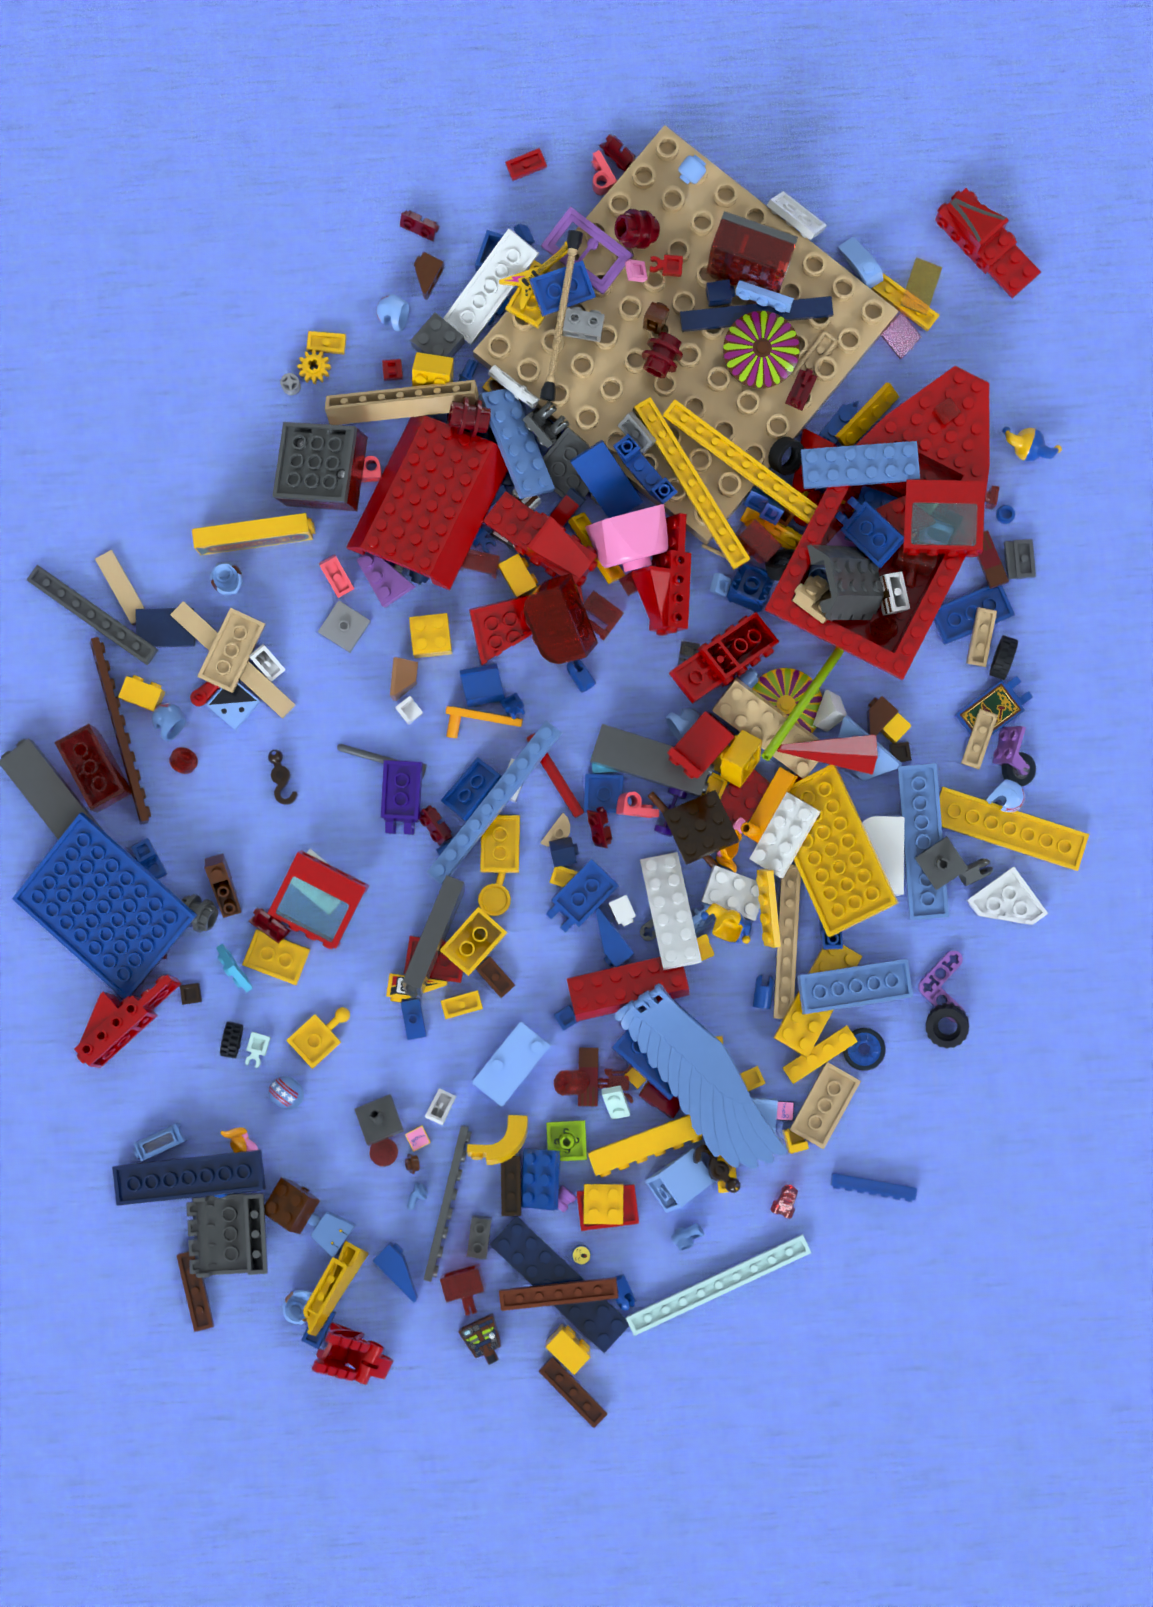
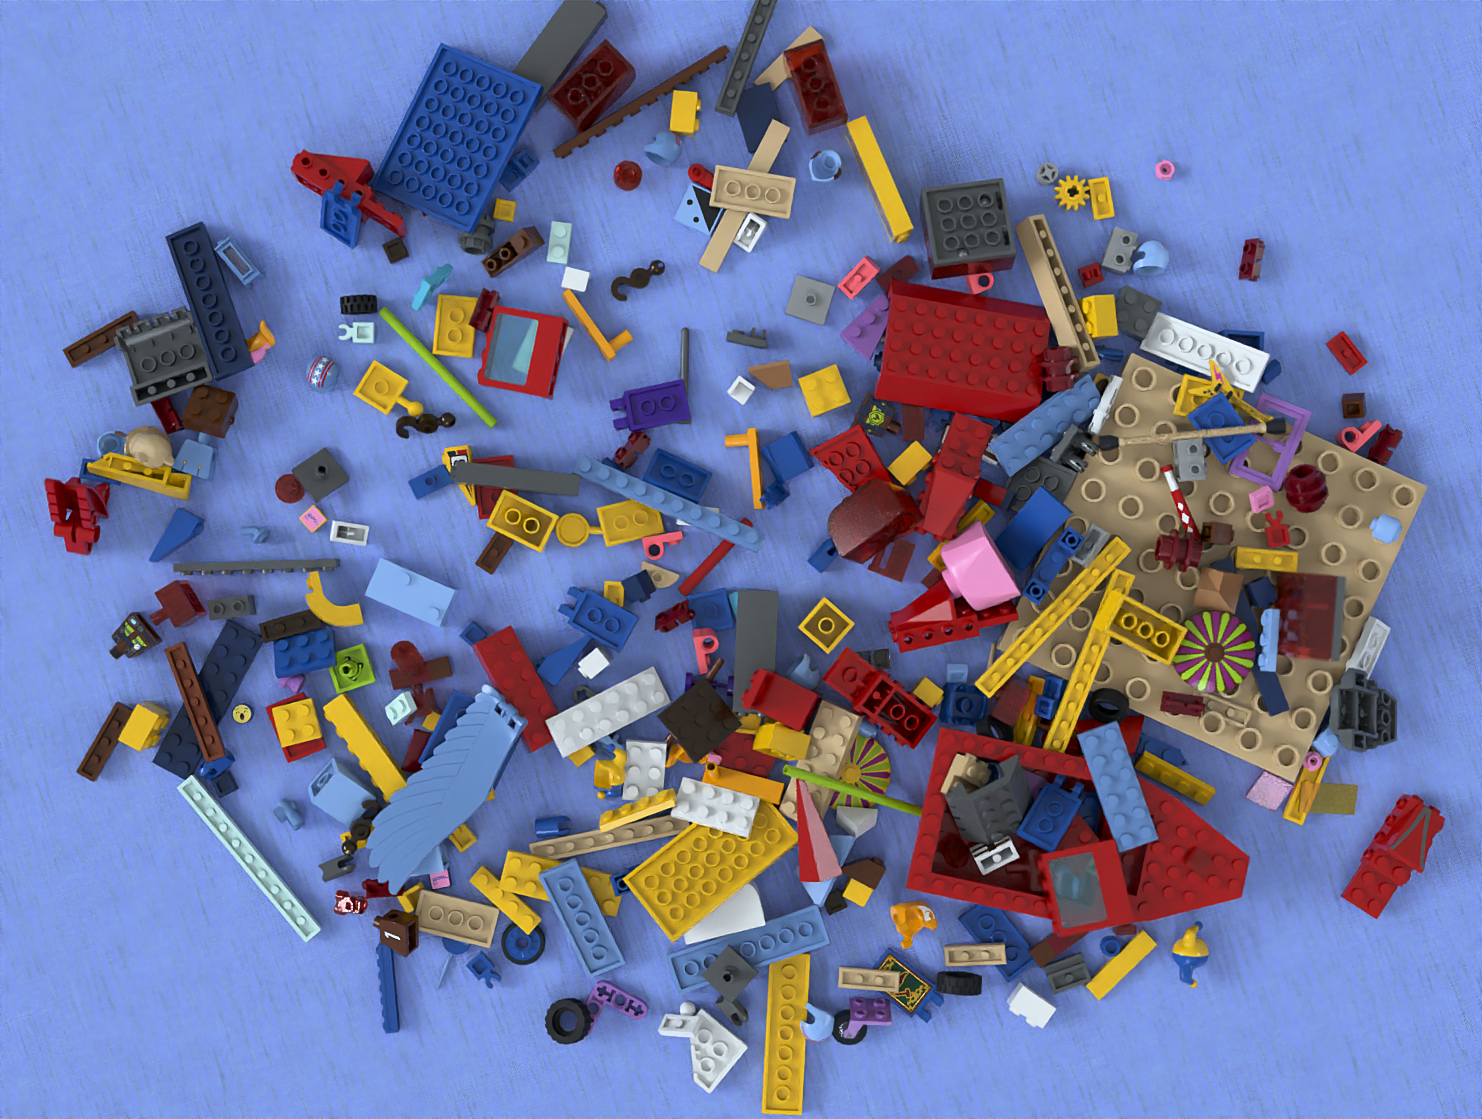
camera: 75 degrees right, 5 degrees up
(146, 1032) = (341, 216): none -> blue tile
(153, 568) = (814, 87): none -> clear red brick
(182, 882) = (504, 210): none -> yellow tile
(227, 840) = (559, 242): none -> light aqua plate
(265, 833) = (575, 279): none -> white panel
(285, 1248) = (167, 415): none -> dark red hinge
(308, 1272) = (149, 446): none -> tan hair
(309, 983) = (437, 366): none -> lime piece
(316, 275) = (1164, 165): none -> bright pink plate
(335, 823) = (607, 348): none -> light orange piece
(341, 535) = (900, 271): none -> dark red plate
(358, 1007) = (425, 423): none -> dark brown piece
(360, 699) = (738, 337): none -> dark grey plate
(378, 339) = (1119, 251): none -> light grey brick
(412, 1163) = (286, 520): reddish brown plate -> none
(428, 272) = (1203, 283): reddish brown slope -> none
(461, 1004) = (457, 526): yellow plate -> none
(467, 595) = (876, 417): none -> torso
(527, 809) = (672, 539): none -> coral plate
(574, 170) = (1354, 405): none -> reddish brown slope
(625, 342) = (1181, 505): none -> red piece
(643, 1290) = (224, 784): none -> dark blue tile
(644, 690) = (826, 625): none -> yellow brick
(691, 281) = (1266, 559): none -> yellow tile
(707, 330) = (1218, 589): none -> medium nougat slope
(722, 406) = (1140, 627): none -> yellow brick
(730, 614) = (928, 692): none -> yellow brick
(749, 1205) = (336, 867): none -> dark grey piece
(779, 1168) = (379, 890): none -> dark red hinge
(822, 1161) = (399, 931): none -> reddish brown torso
(851, 234) = (1362, 712): none -> dark grey wedge
(851, 1115) = (454, 947): none -> blue piece
(877, 1093) = (482, 967): none -> blue plate
(888, 290) = (1317, 761): none -> bright pink plate
(933, 686) = (911, 918): none -> light orange piece
(977, 919) = (681, 1025): none -> white plate
(1024, 509) = (1120, 964): none -> yellow tile
(1041, 598) = (1031, 1005): none -> white brick

